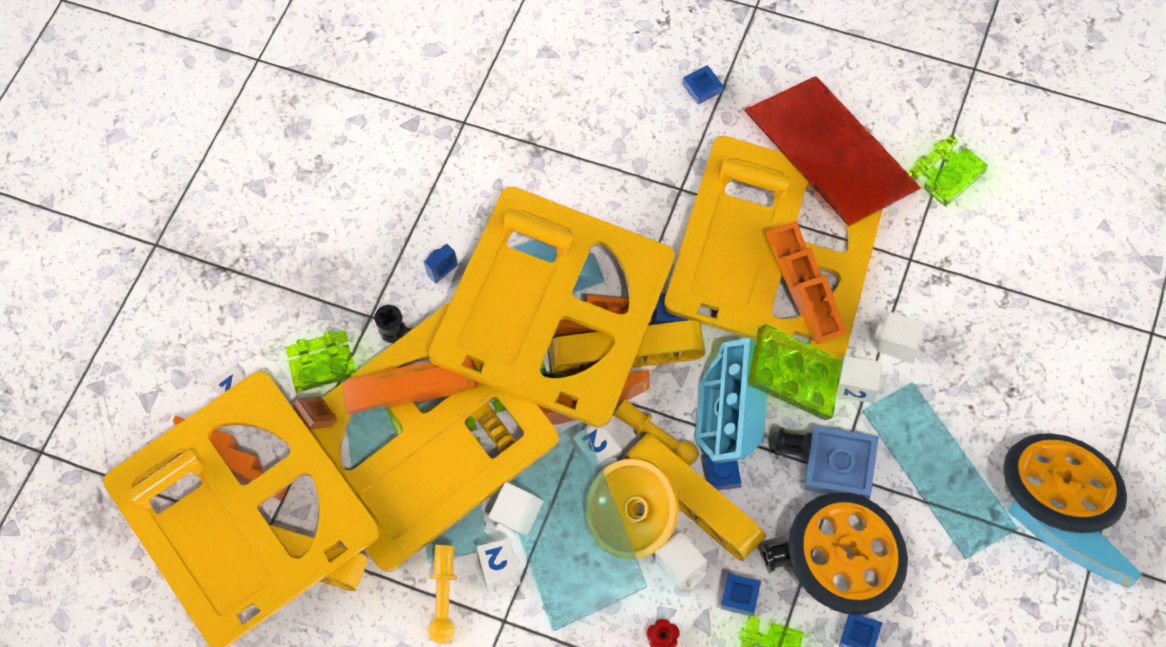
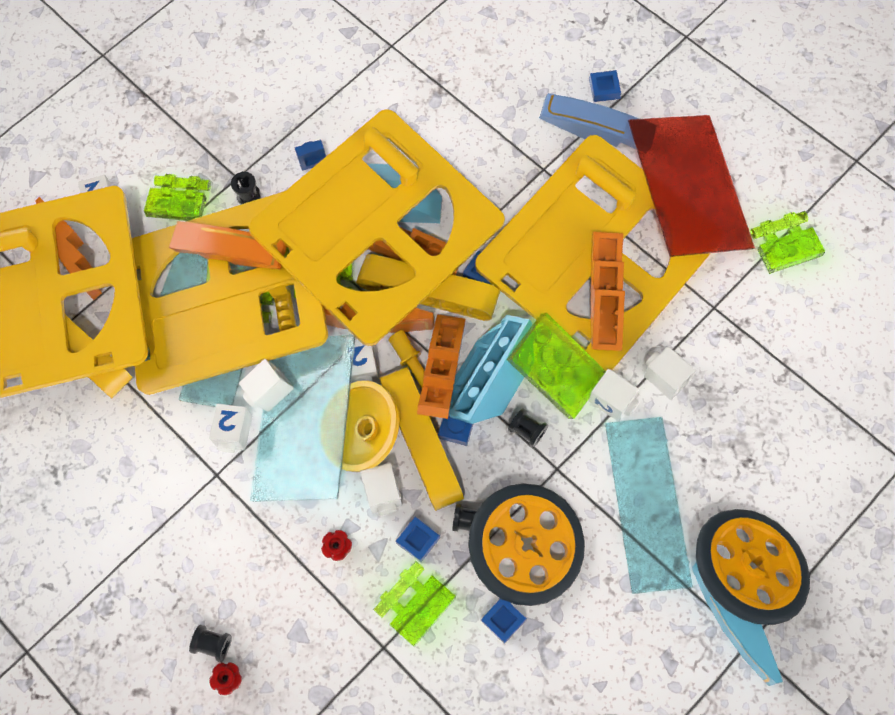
camera: 25 degrees right, 5 degrees up
(314, 413) = (145, 238): dark orange tile -> none
(441, 628) = (163, 459): yellow pin -> none
(682, 419) = (441, 366): none -> orange slope
(704, 123) = (588, 119): none -> medium blue slope
(841, 461) = (562, 461): medium blue plate -> none

